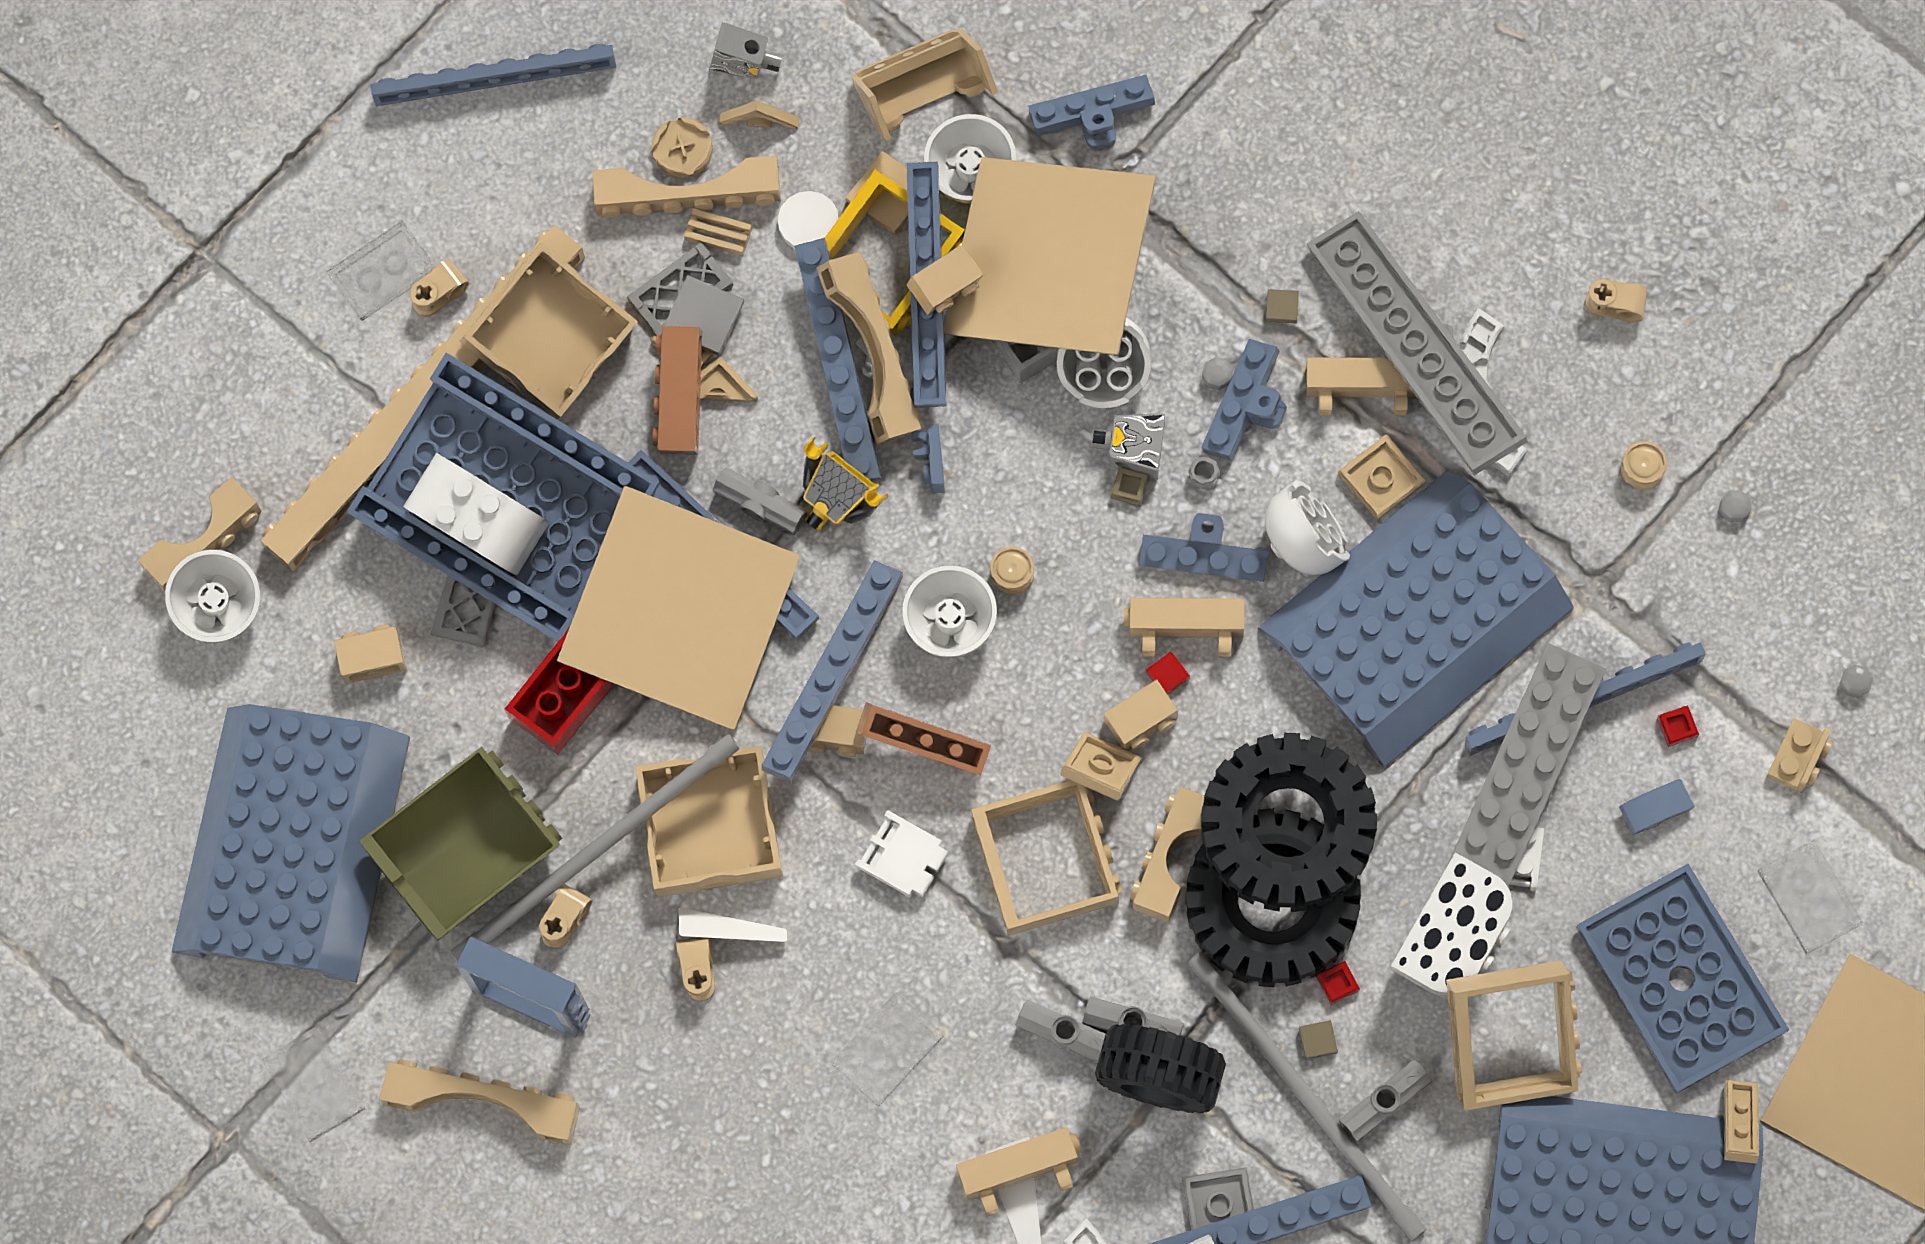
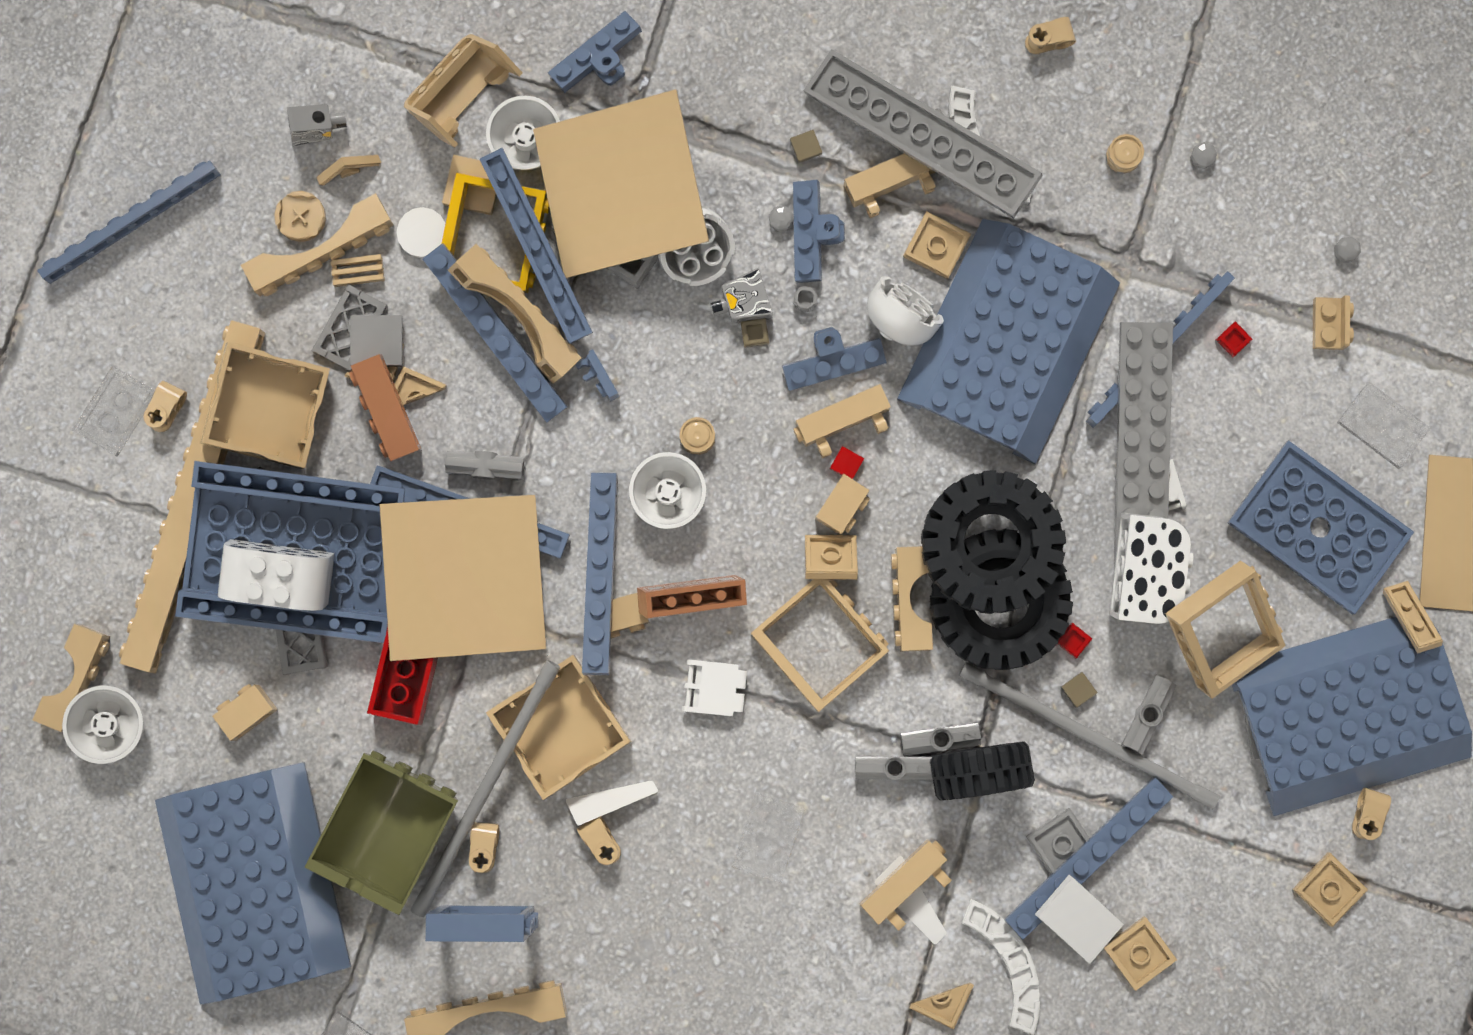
camera: 30 degrees left, 10 degrees up
(836, 489) = (539, 432): torso -> none
(944, 280) = (550, 237): tan brick -> none
(1656, 806) = (1246, 407): sand blue slope -> none

